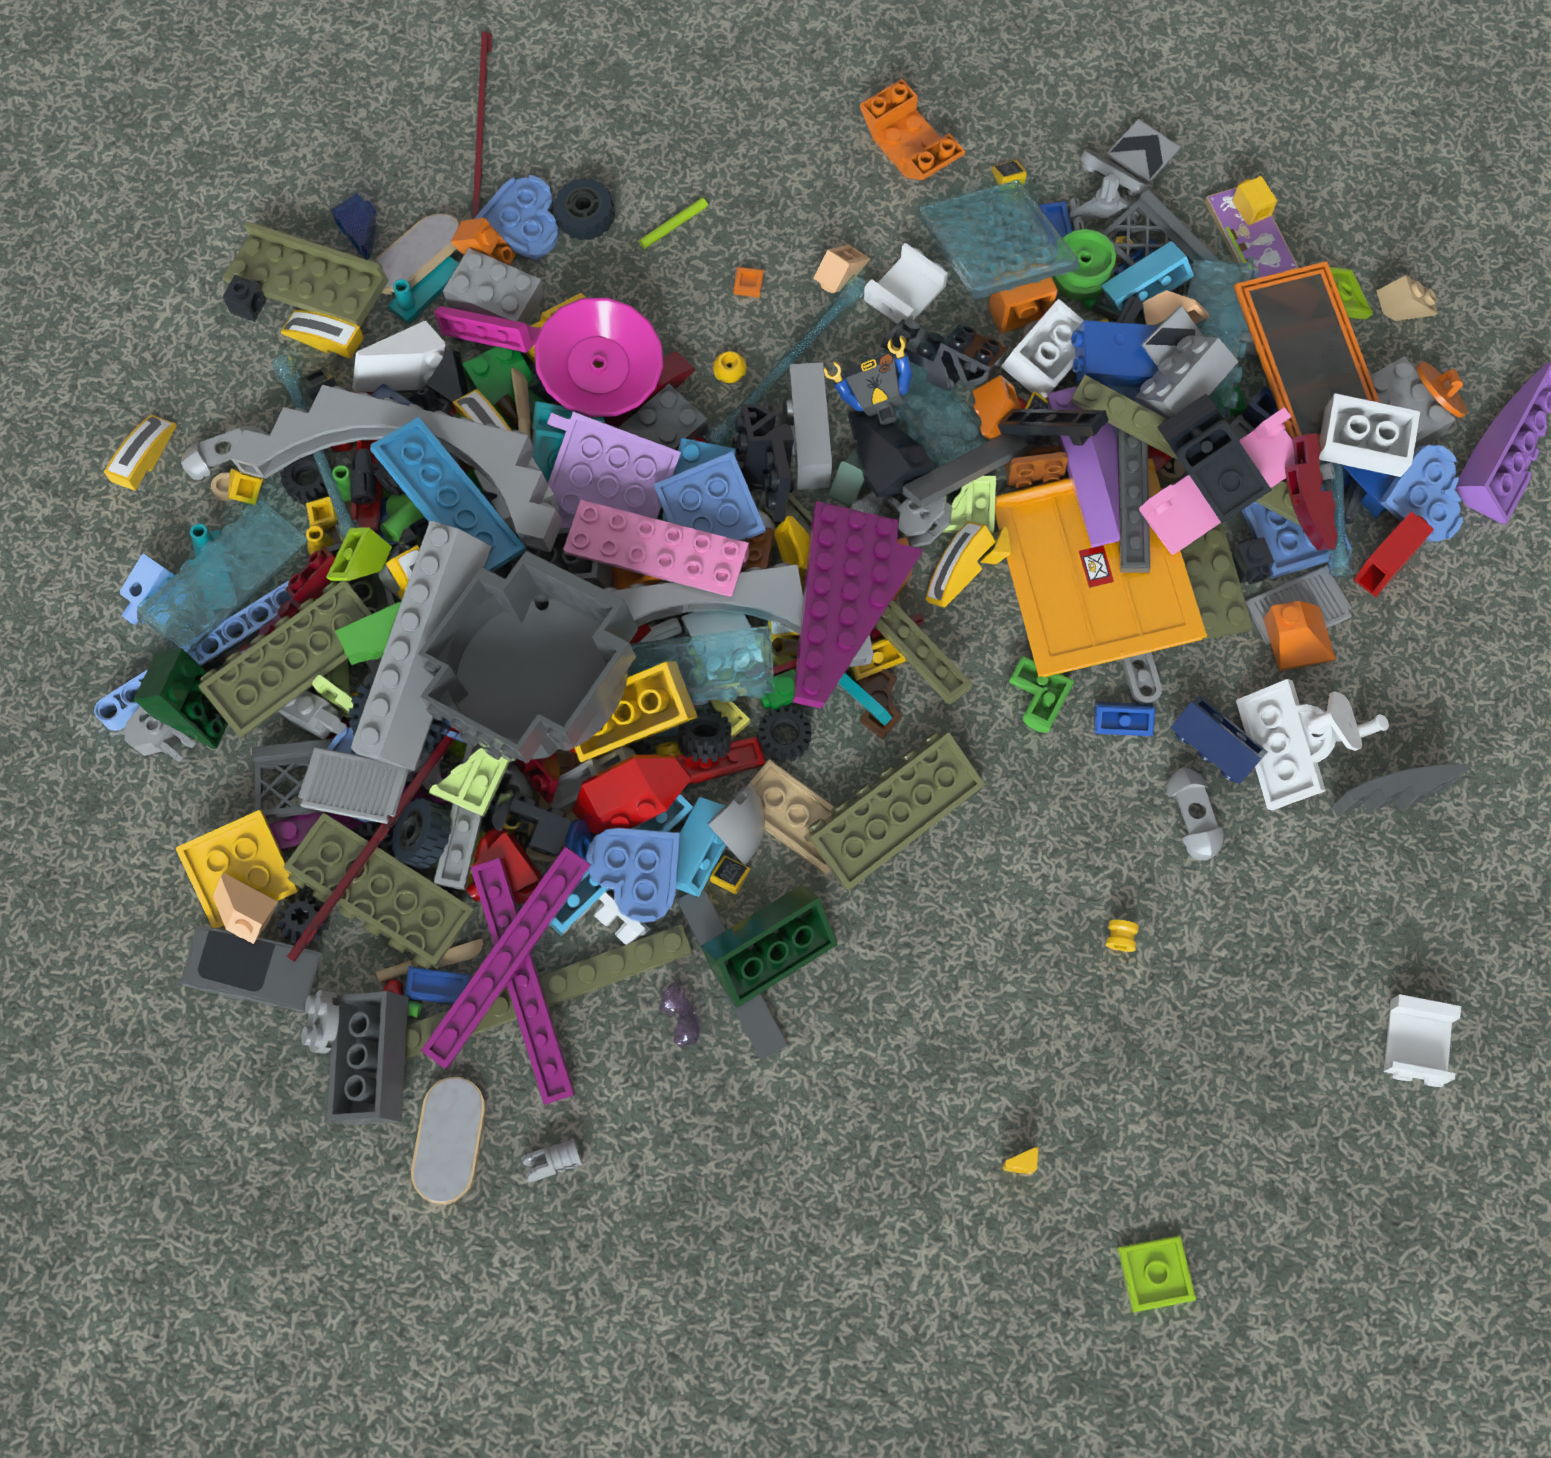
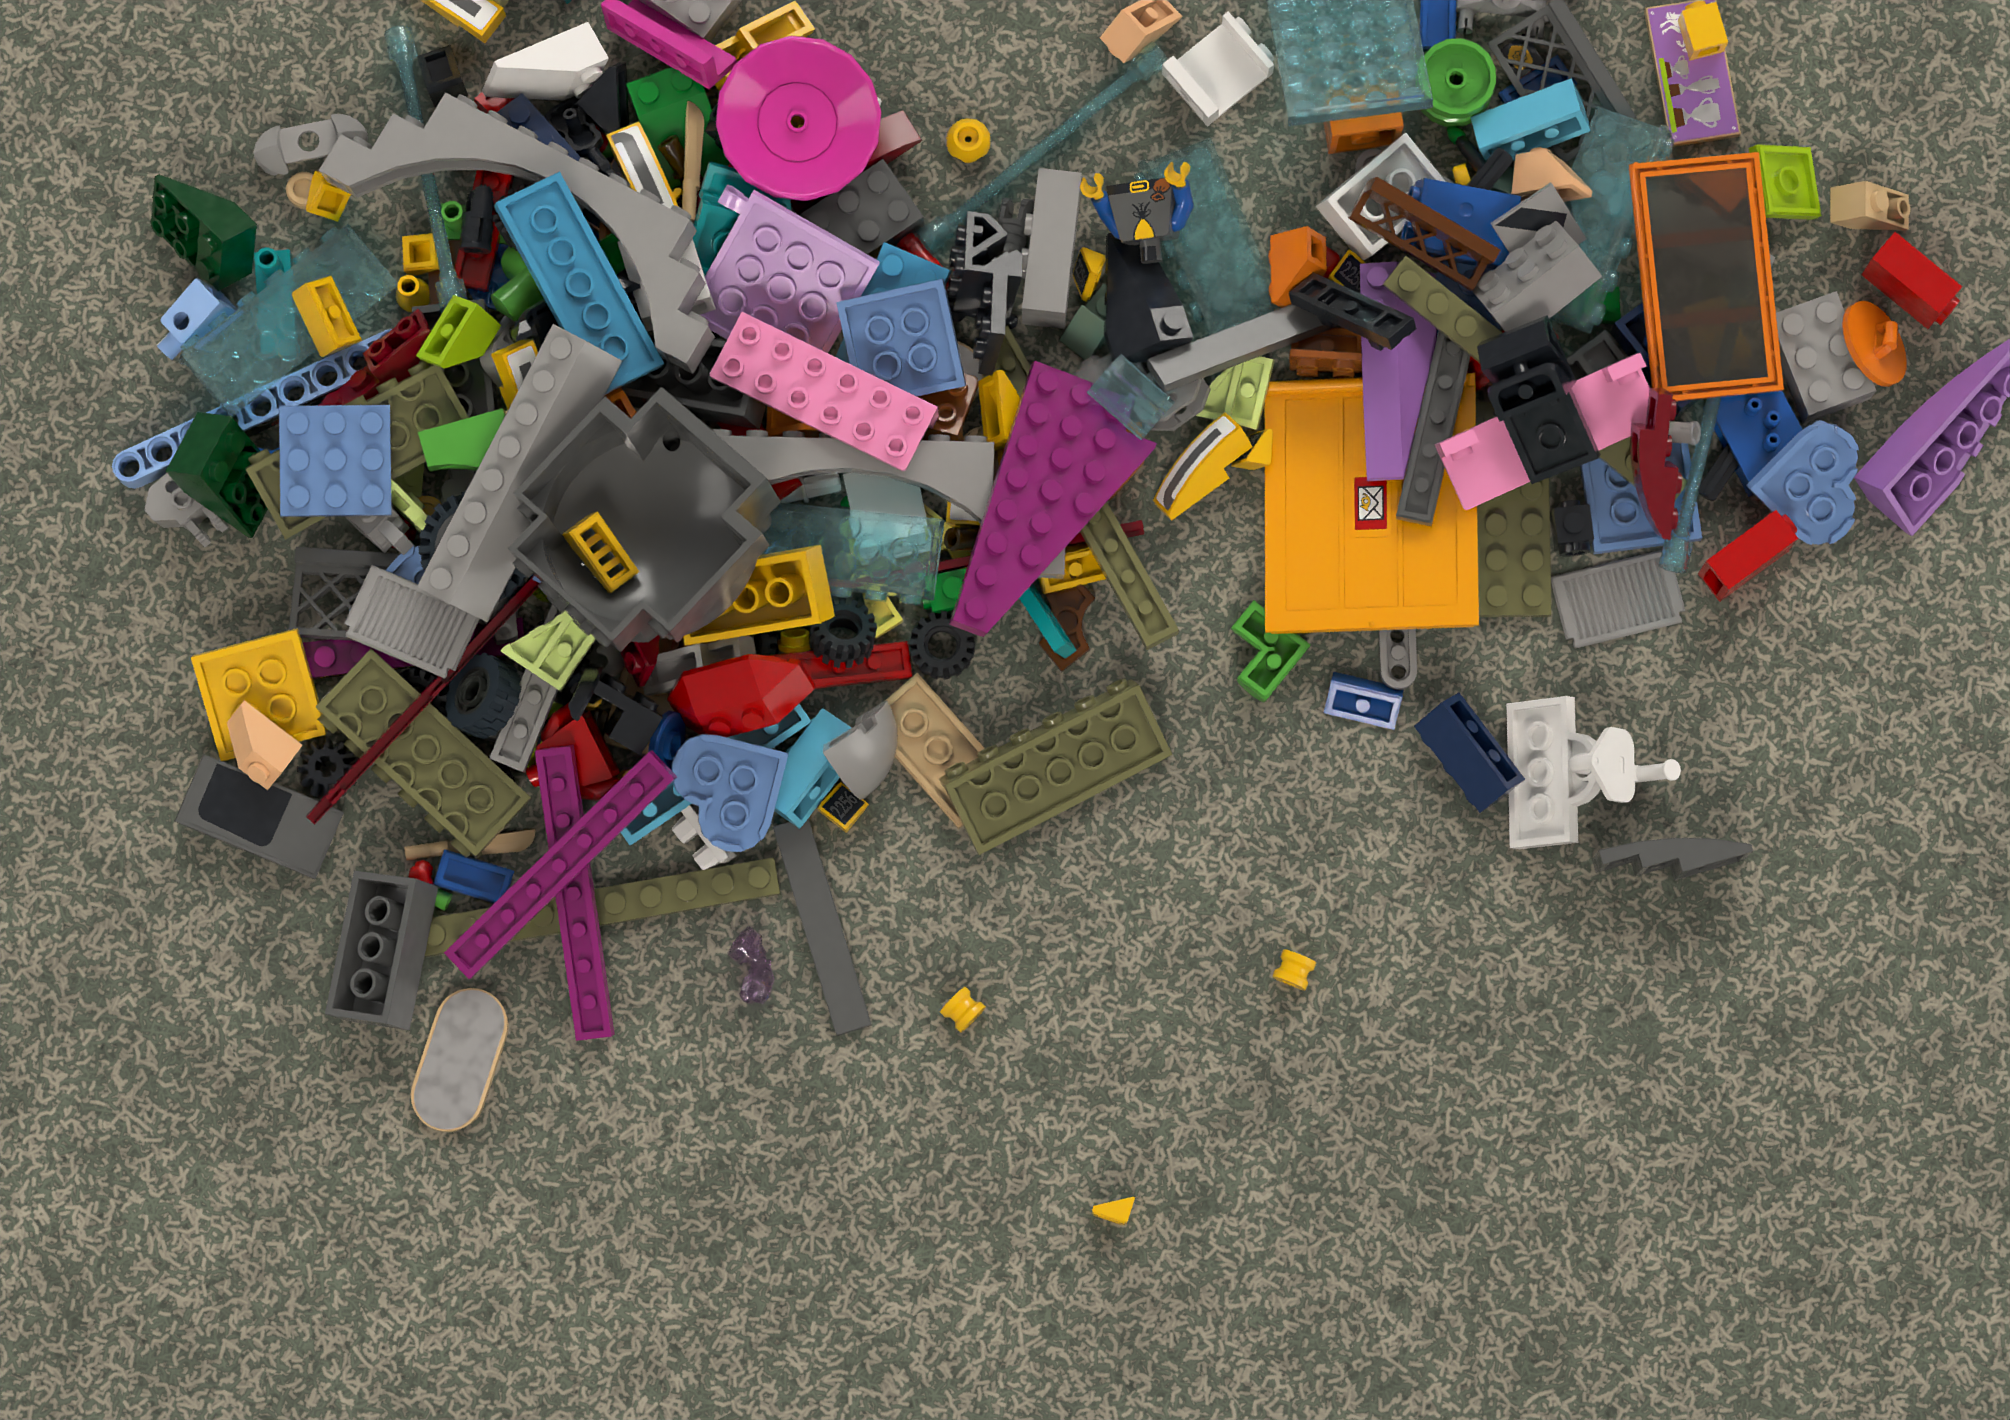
camera: 15 degrees right, 10 degrees up
(139, 452) = (204, 125): slope -> none
(148, 522) = (204, 231): none -> dark green slope
(252, 567) = (326, 316): none -> yellow slope
(271, 666) = (335, 460): none -> medium blue plate
(297, 491) = (401, 219): black tyre -> none
(321, 1022) = (333, 897): light grey plate -> none
(492, 703) = (590, 559): none -> yellow slope
(558, 1159) = (582, 1103): light grey hinge -> none
(748, 282) = (1016, 22): orange tile -> none
(770, 945) = (872, 903): dark green slope -> none
(840, 440) = (1088, 272): none -> yellow slope
(860, 1018) = (962, 1009): none -> yellow wheel
(895, 515) = (1130, 397): none -> clear light blue hinge
(958, 356) = (1245, 188): black piece -> none
(1097, 347) = (1430, 221): none -> reddish brown fence
(1156, 1273) = (1241, 1364): lime tile -> none
(1204, 835) = (1421, 866): light grey piece -> none
(1298, 635) = (1606, 637): orange slope -> none
(1368, 435) = (1744, 402): white brick -> none
(1420, 1039) = (1617, 1159): white panel -> none
(1458, 341) = (1913, 281): none -> red brick

